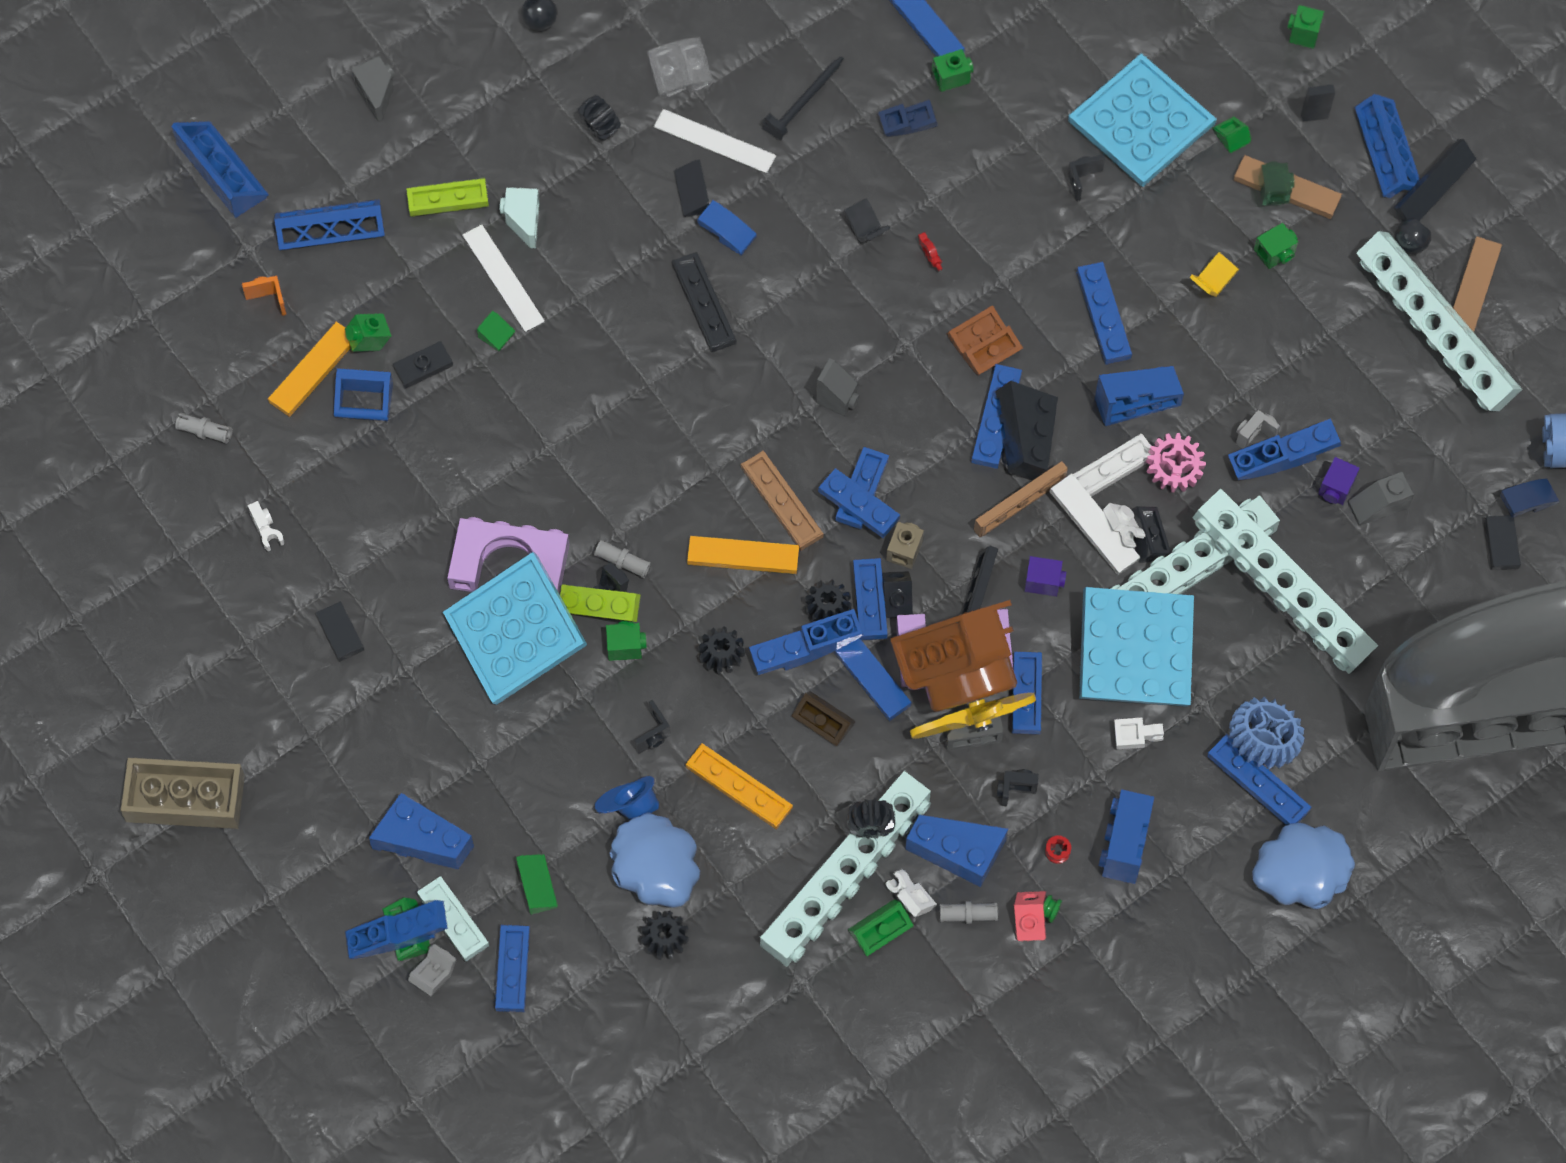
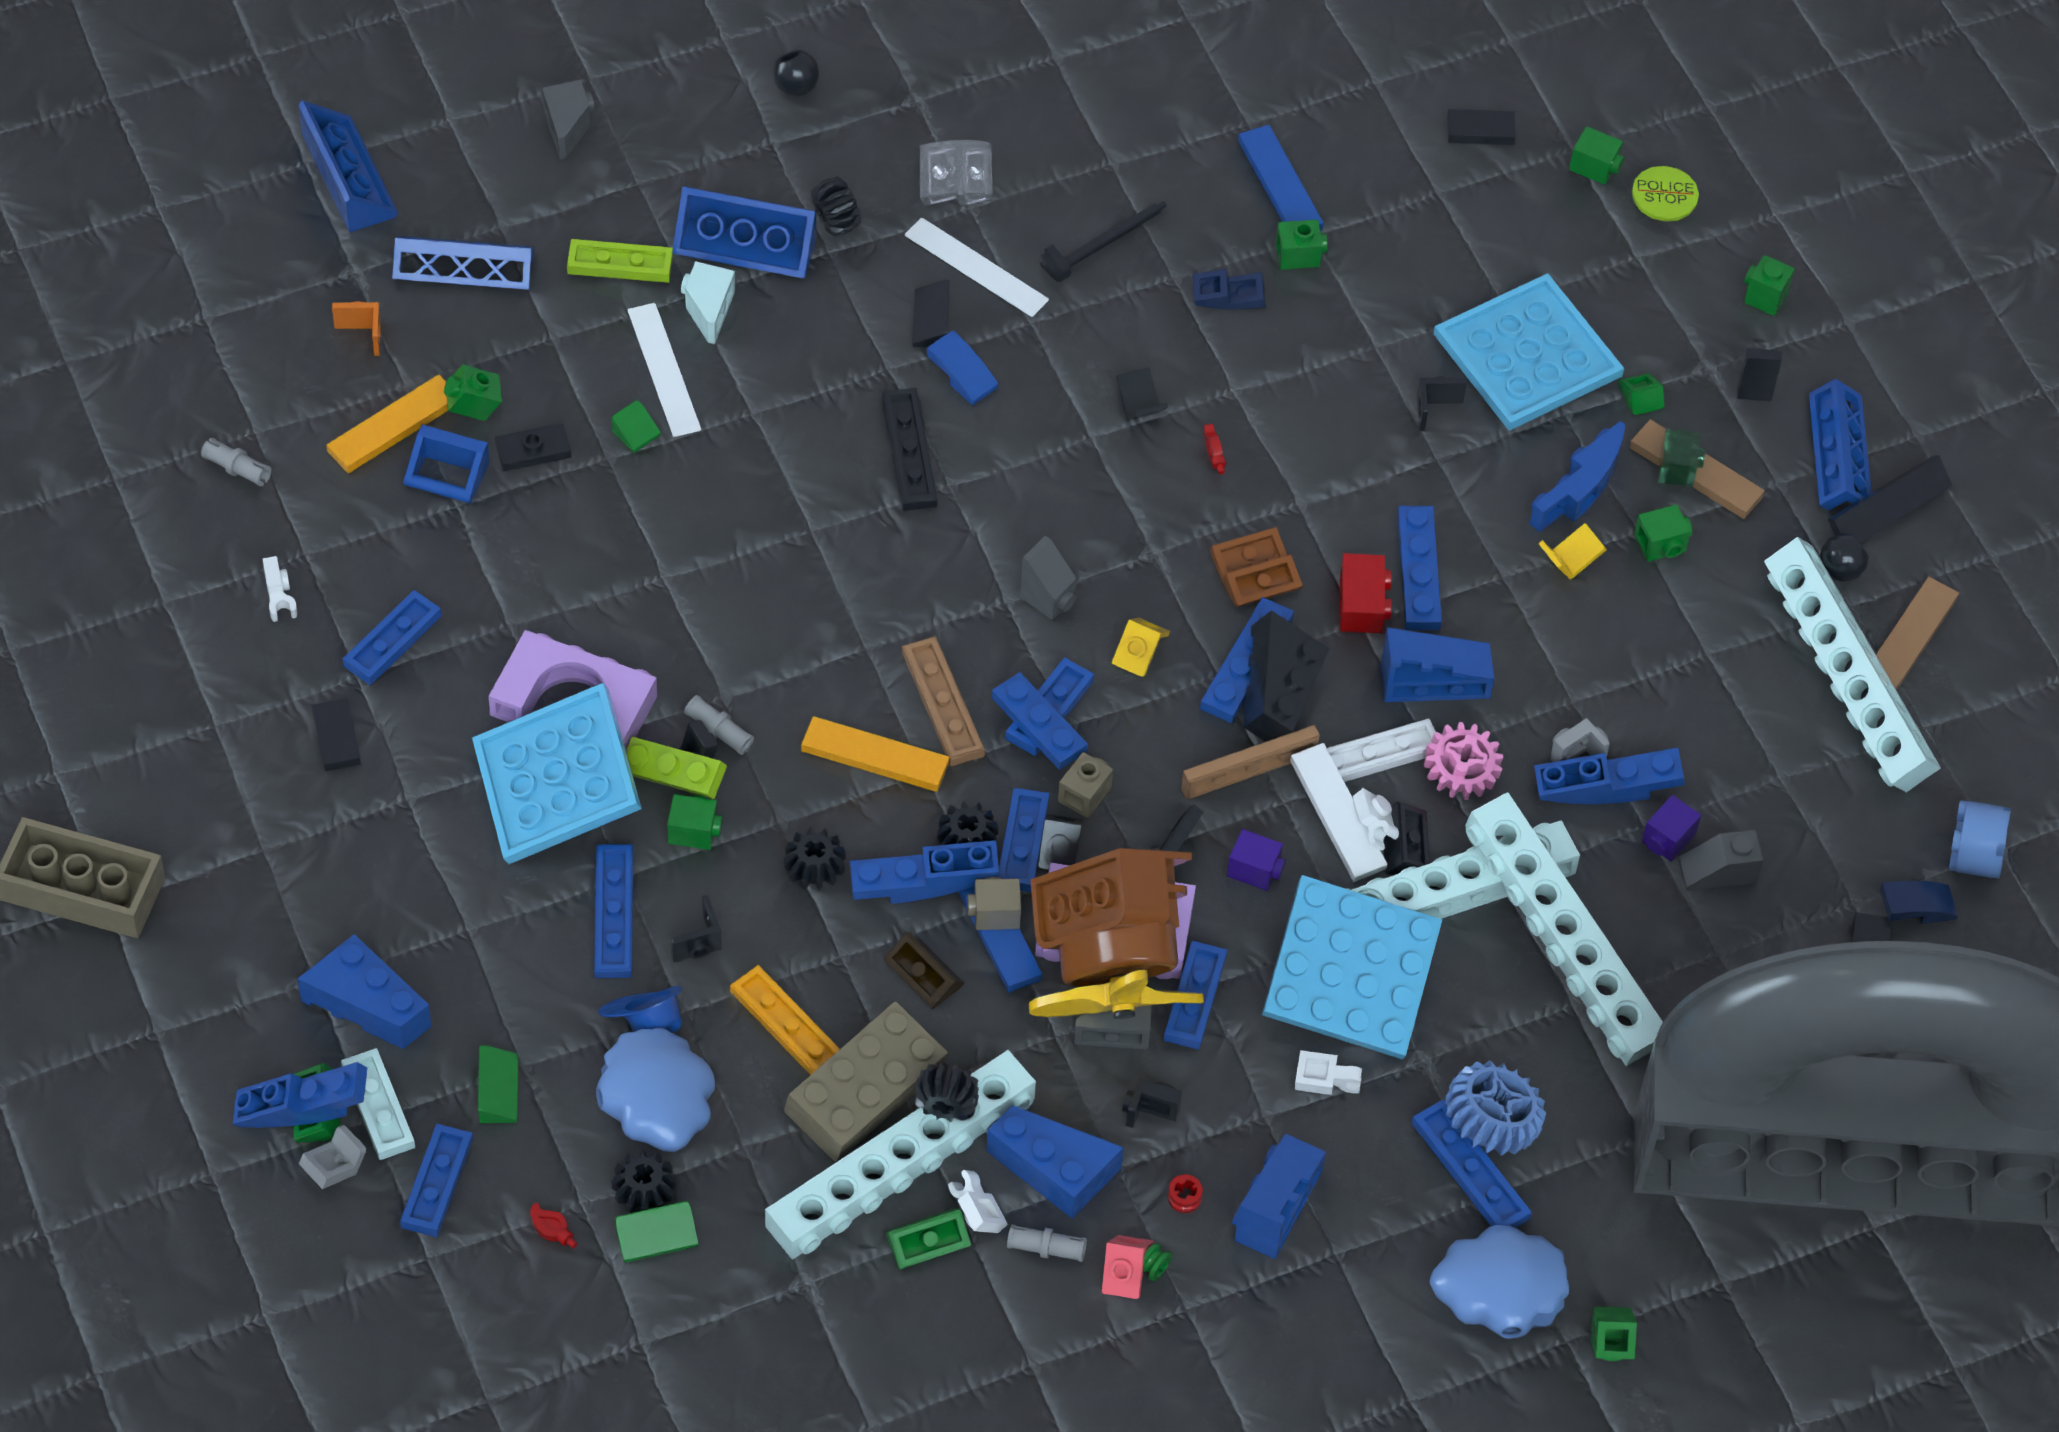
camera: 10 degrees right, 10 degrees down
(360, 544) = (392, 637): none -> blue plate
(535, 154) = (745, 232): none -> blue slope
(584, 724) = (614, 911): none -> blue tile
(605, 983) = (551, 1226): none -> red piece
(683, 970) = (656, 1231): none -> green slope
(806, 819) = (863, 1082): none -> dark tan brick
(865, 656) = (995, 904): none -> dark tan brick
(915, 423) = (1138, 646): none -> yellow bracket
(1069, 344) = (1363, 593): none -> red brick
(1208, 215) = (1584, 483): none -> blue slope
(1393, 887) = (1613, 1333): none -> green brick

